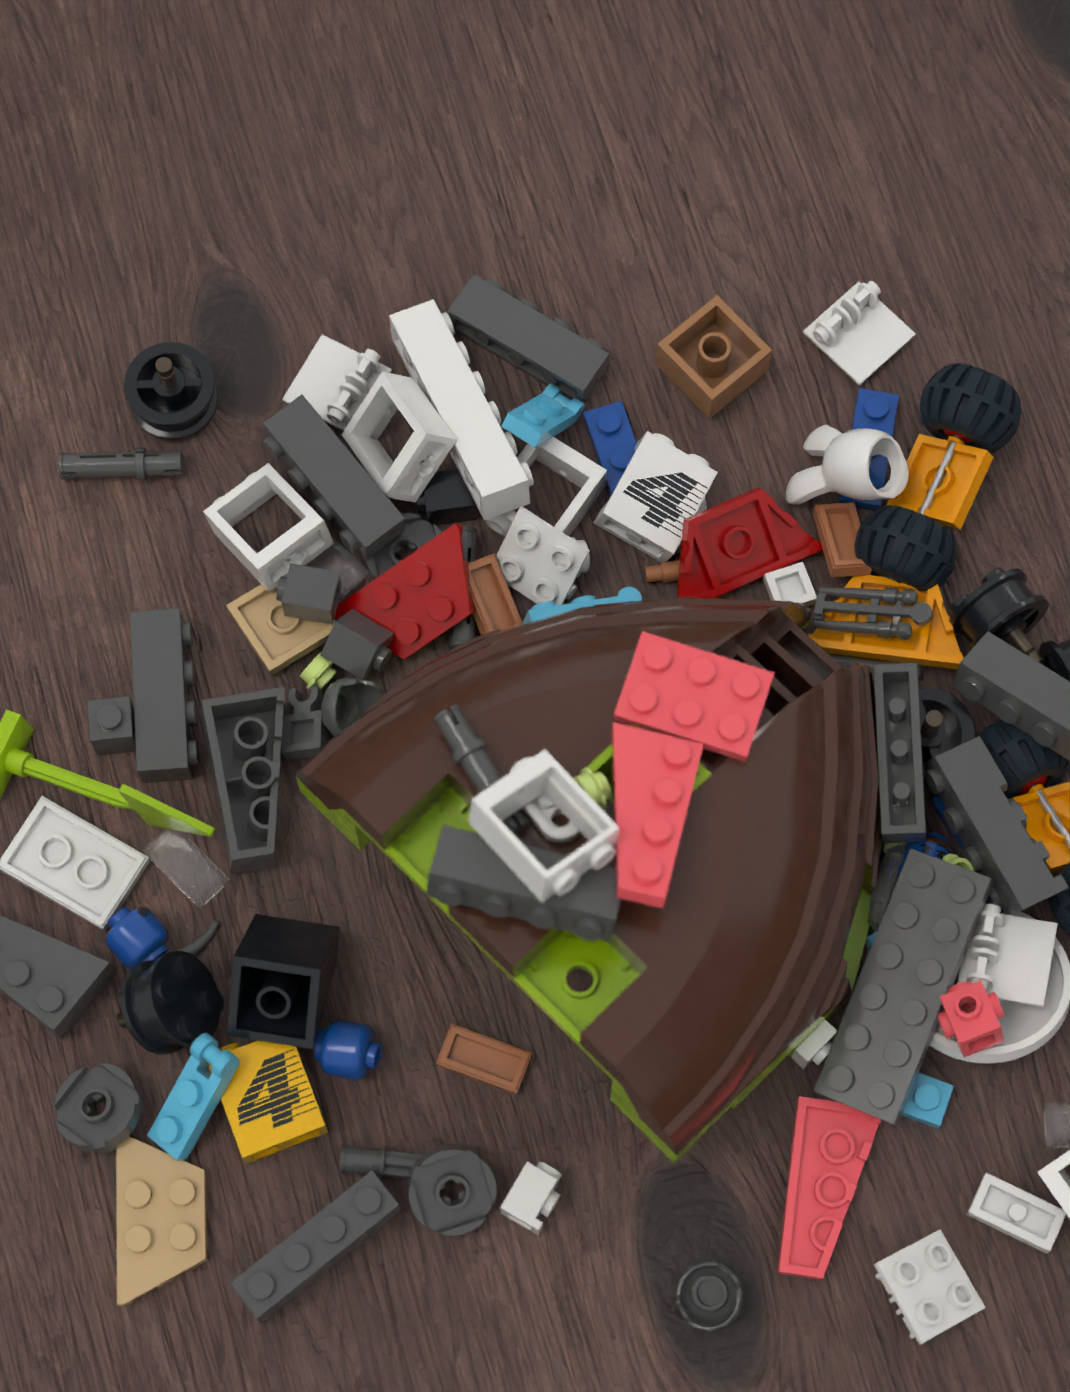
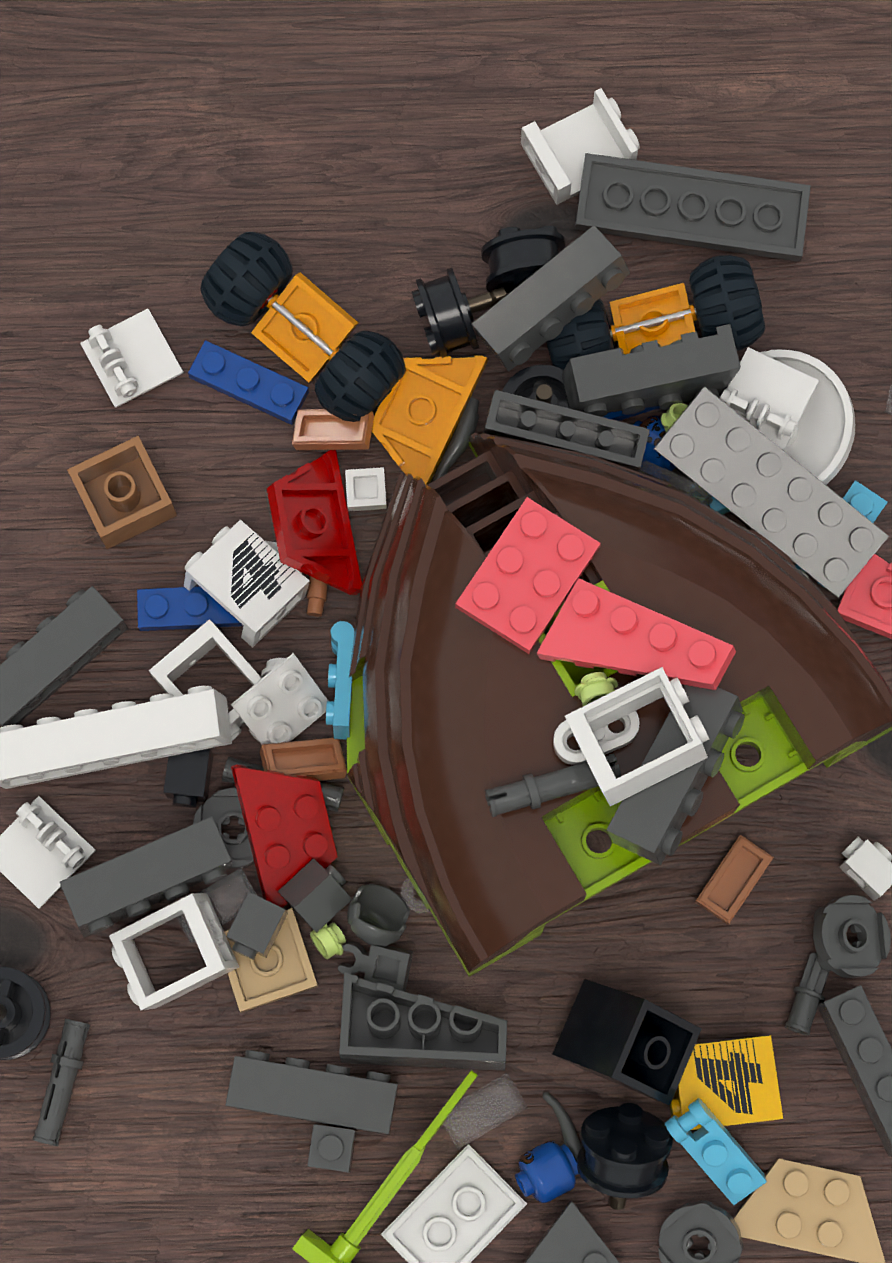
camera: 75 degrees left, 5 degrees up
(347, 1050) = (701, 998): blue head -> none
(430, 441) = (154, 783): white window -> none
(543, 416) = (139, 663): medium azure plate -> none
(847, 465) = (270, 400): white piece -> none
(920, 612) = (431, 379): dark grey piece -> none
(971, 1017) = (831, 450): coral brick -> none

